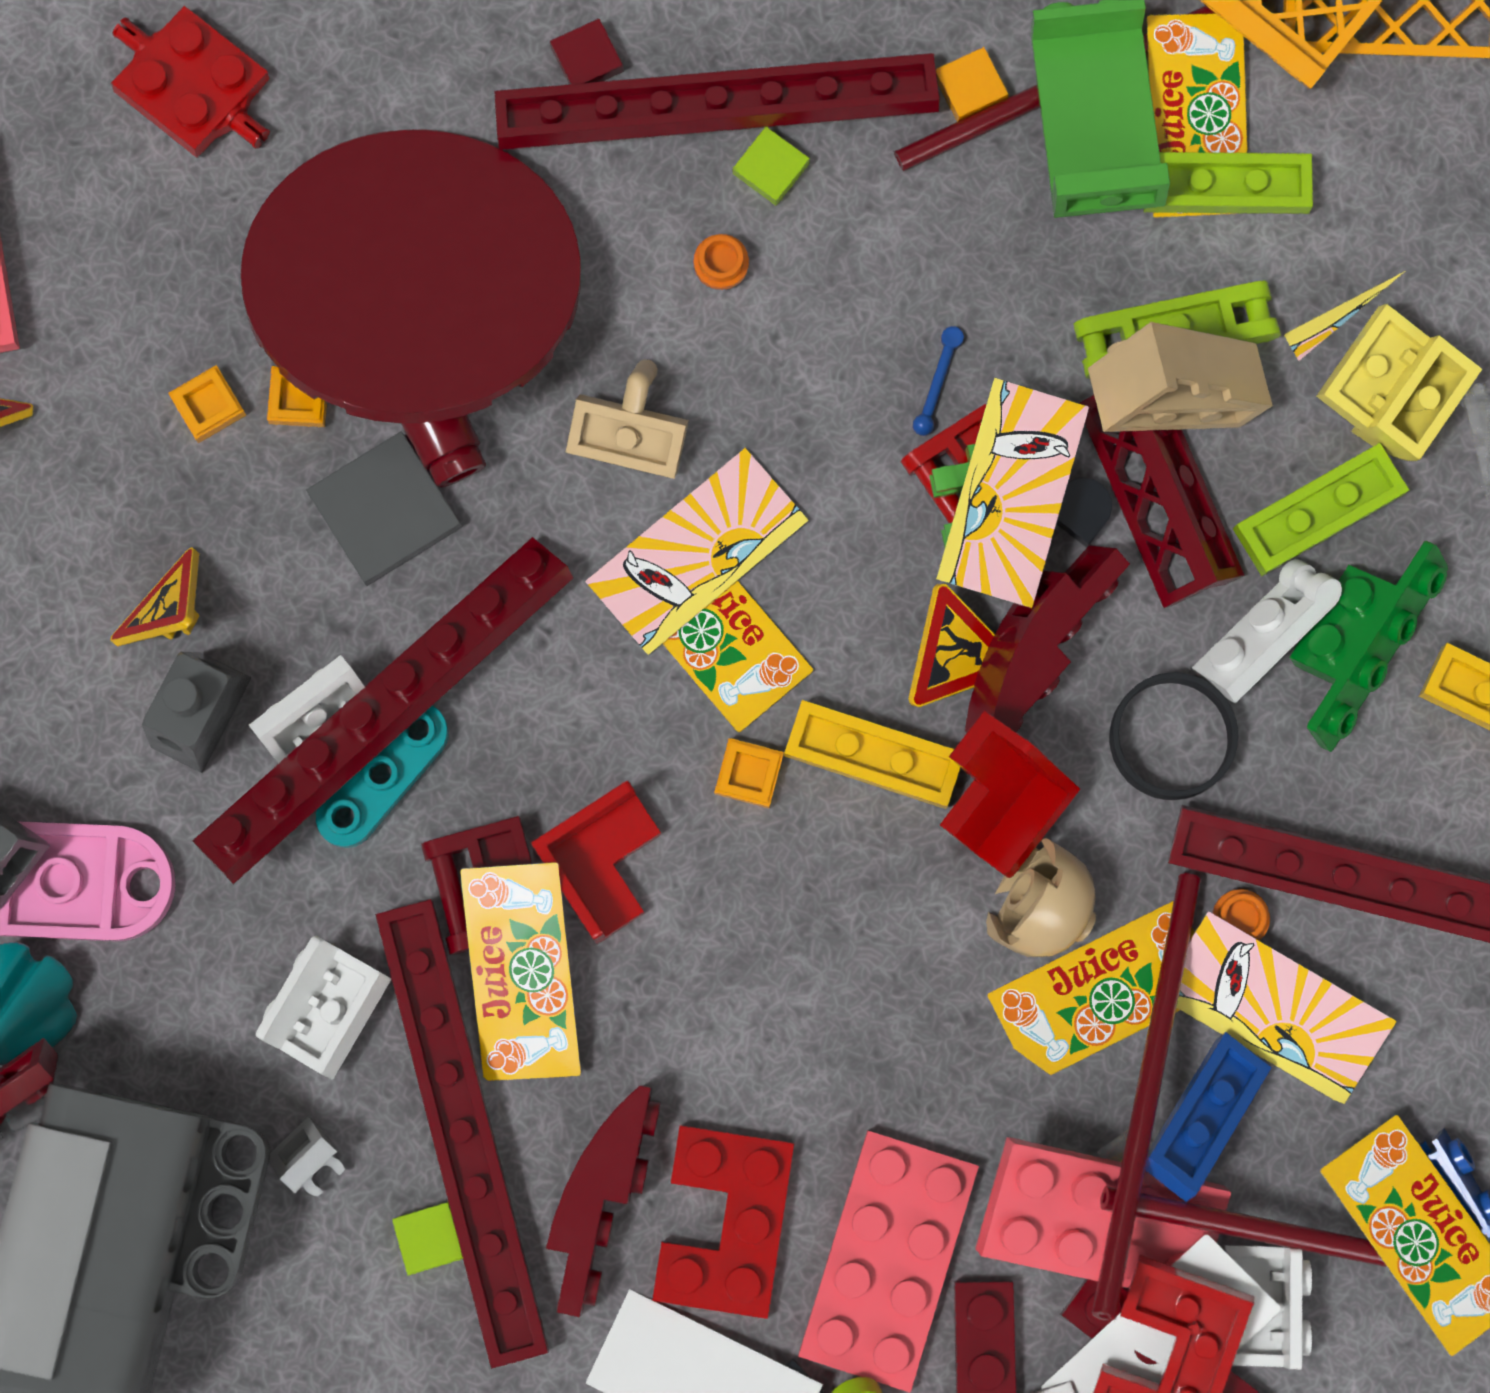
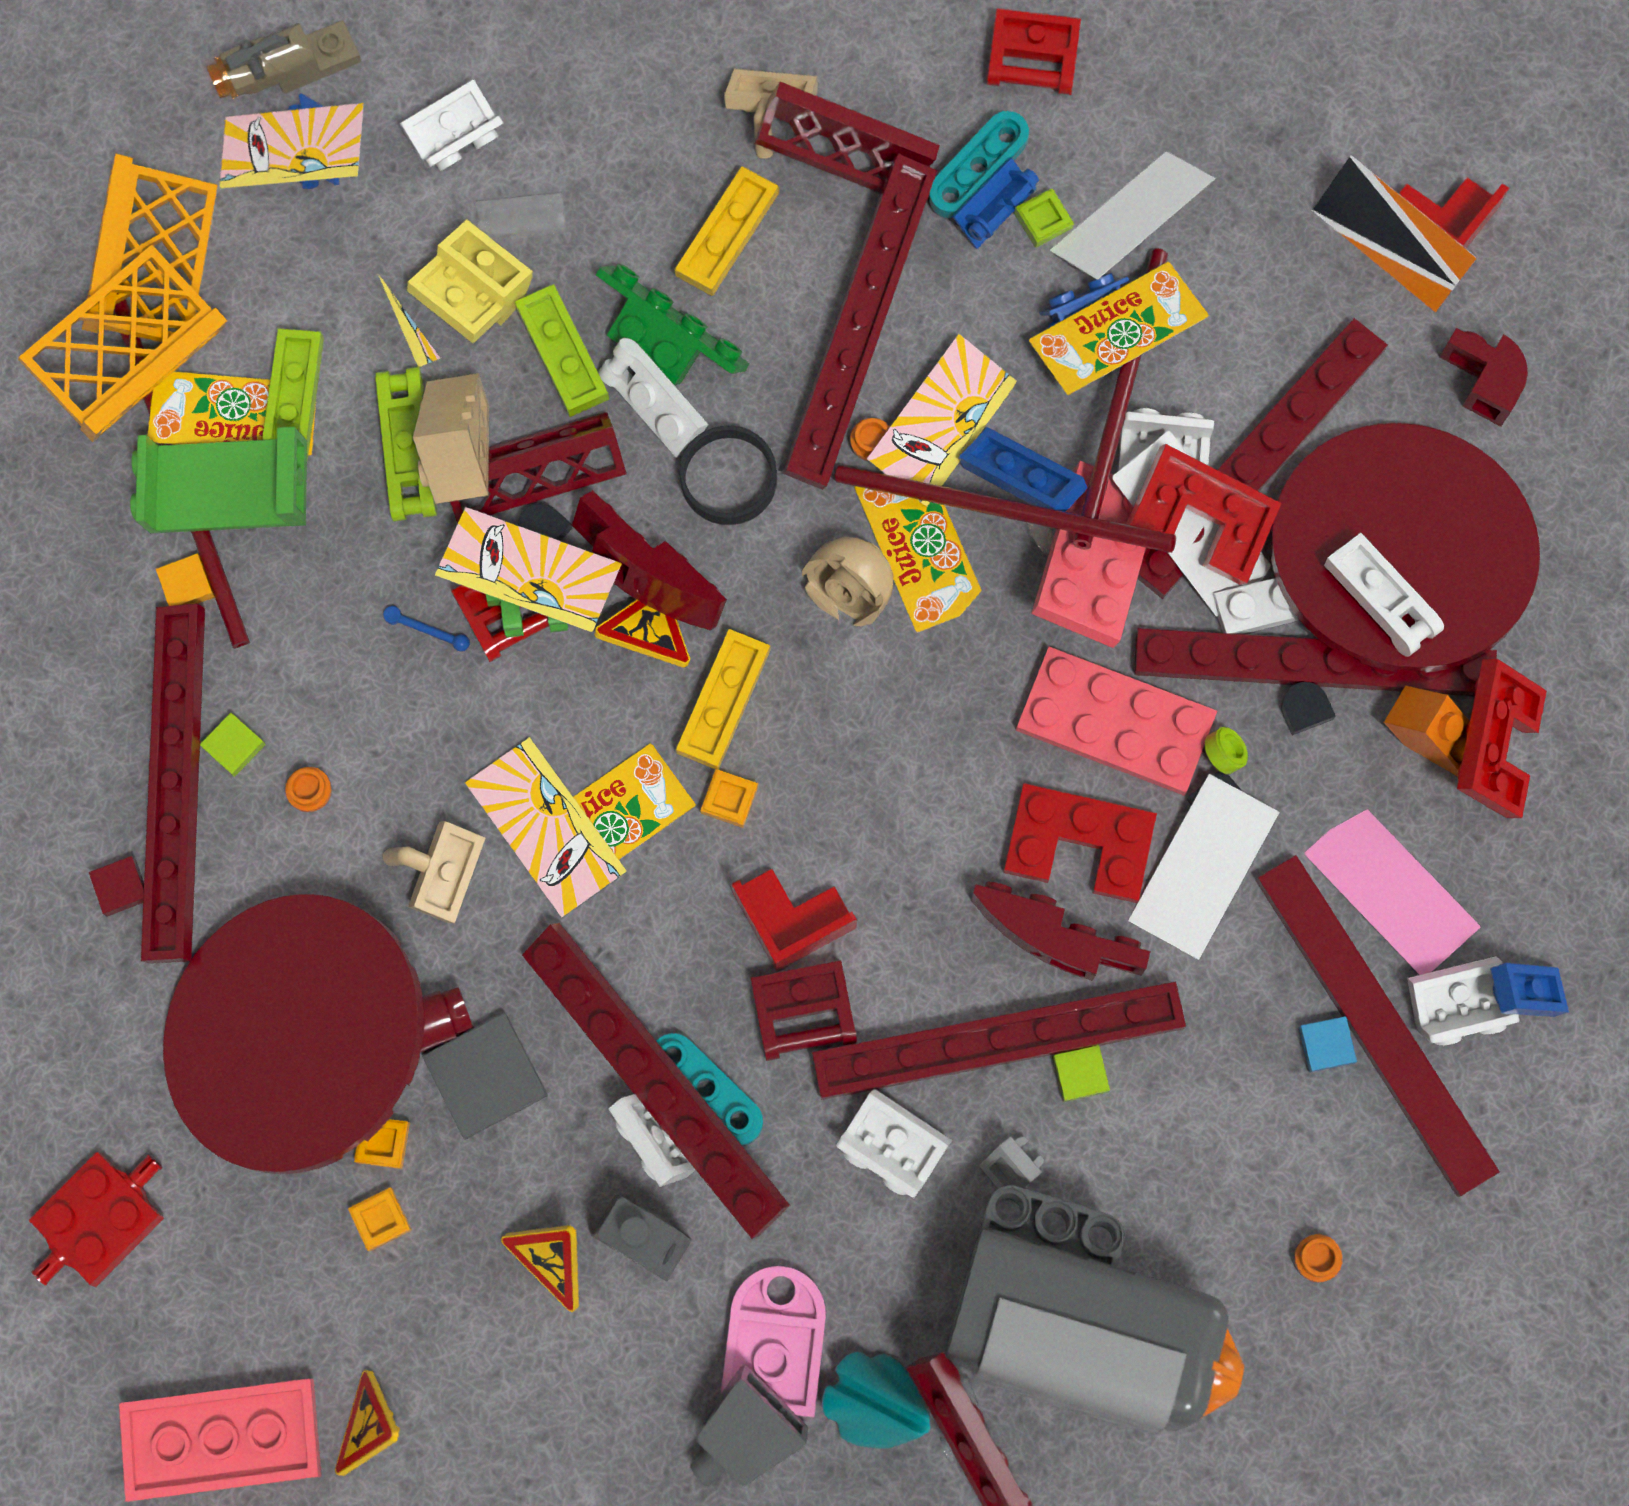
camera: 85 degrees left, 5 degrees down
(520, 971) = (875, 983): sticker -> none
(1012, 796) = (770, 594): red panel -> none

